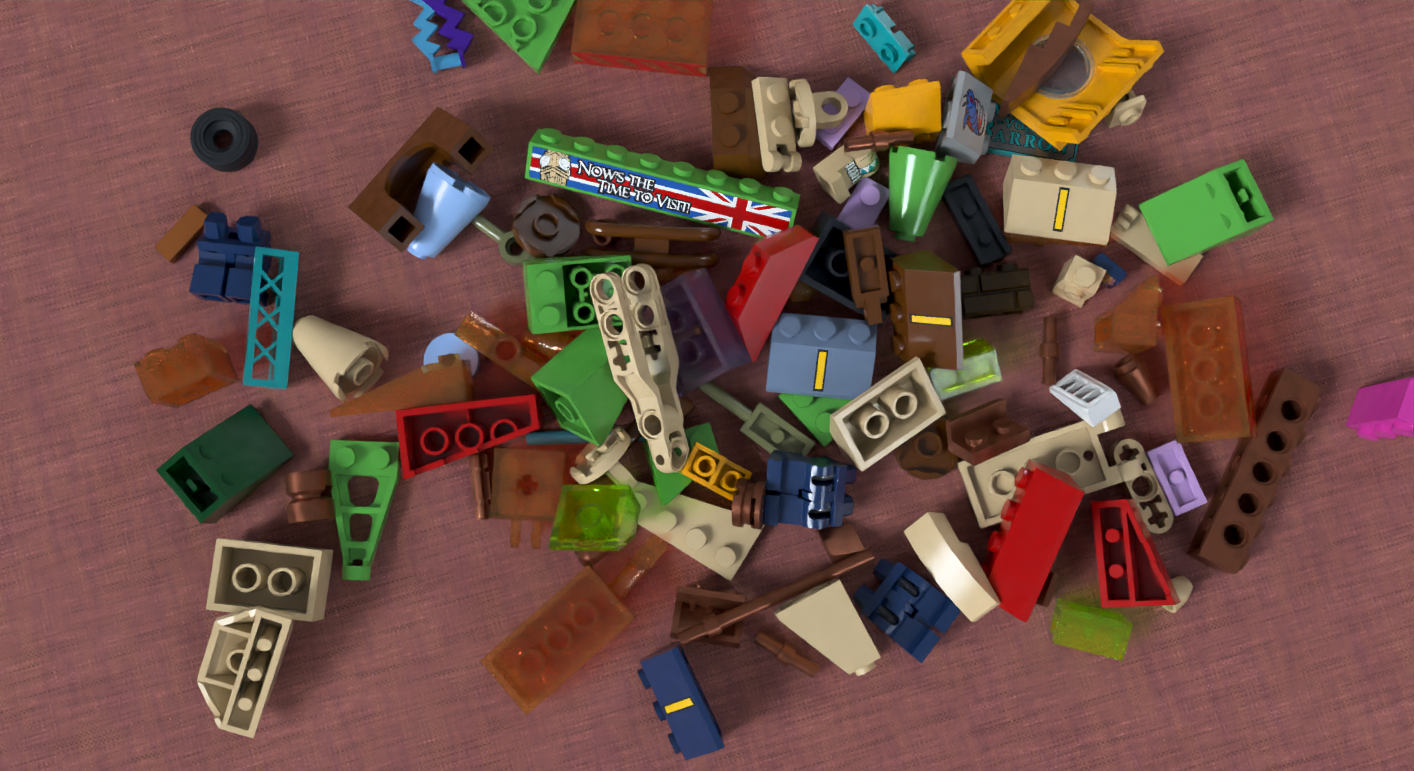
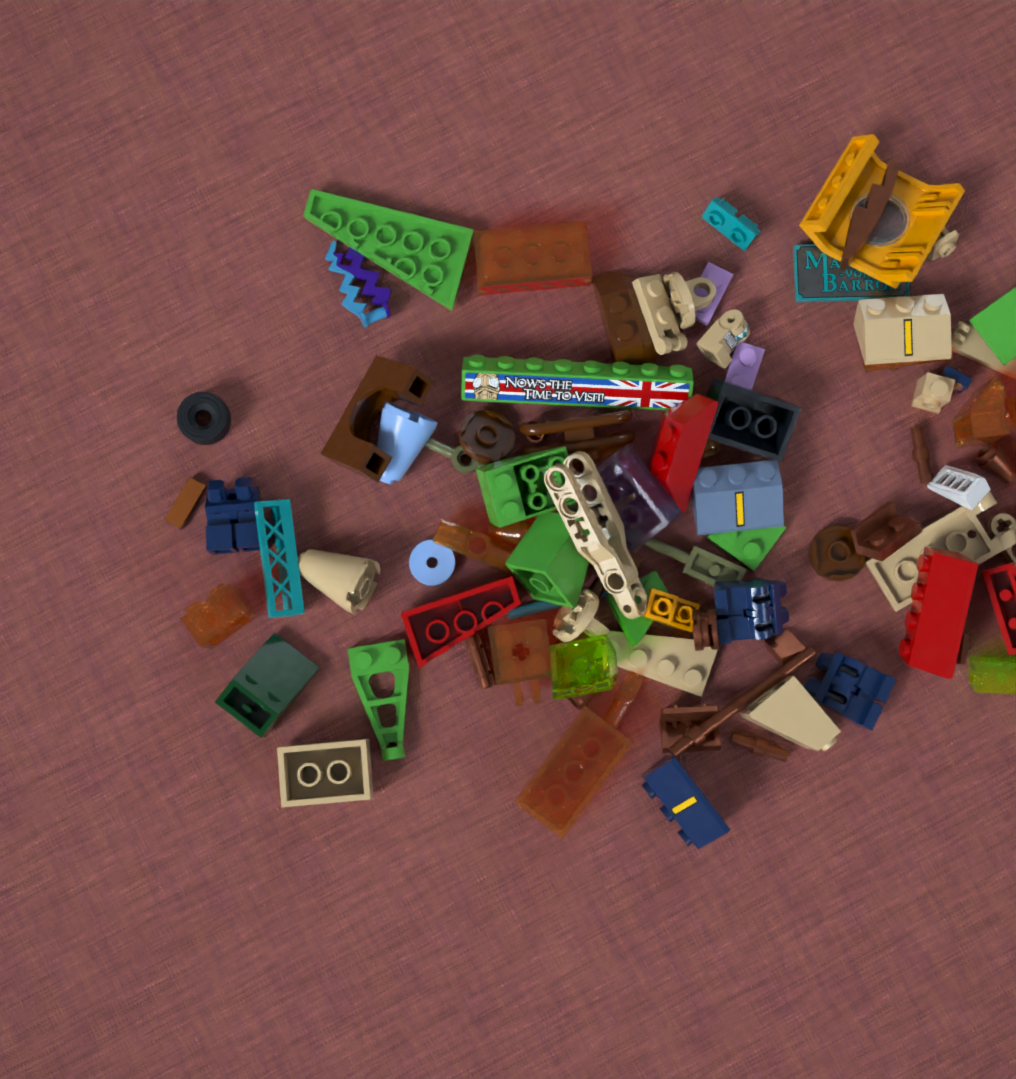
camera: 10 degrees left, 0 degrees up
(243, 666) = (321, 847): tan wedge -> none
(309, 496) = (342, 698): copper wheel -> none
(427, 386) = (421, 587): clear orange slope -> none
(867, 270) = (762, 420): reddish brown hinge -> none
(878, 140) = (747, 311): copper bar -> none
(886, 415) = (801, 535): tan slope -> none
(906, 108) = (762, 285): light orange slope -> none
(915, 189) = (784, 344): bright green cone -> none
(926, 310) = (817, 443): reddish brown slope -> none
(952, 565) = (880, 646): tan slope -> none
(965, 119) = (813, 279): light grey slope -> none
(975, 222) = (837, 360): black hinge -> none
(979, 370) = (852, 484): clear neon green hinge -> none
(995, 292) = (866, 416): dark brown brick -> none

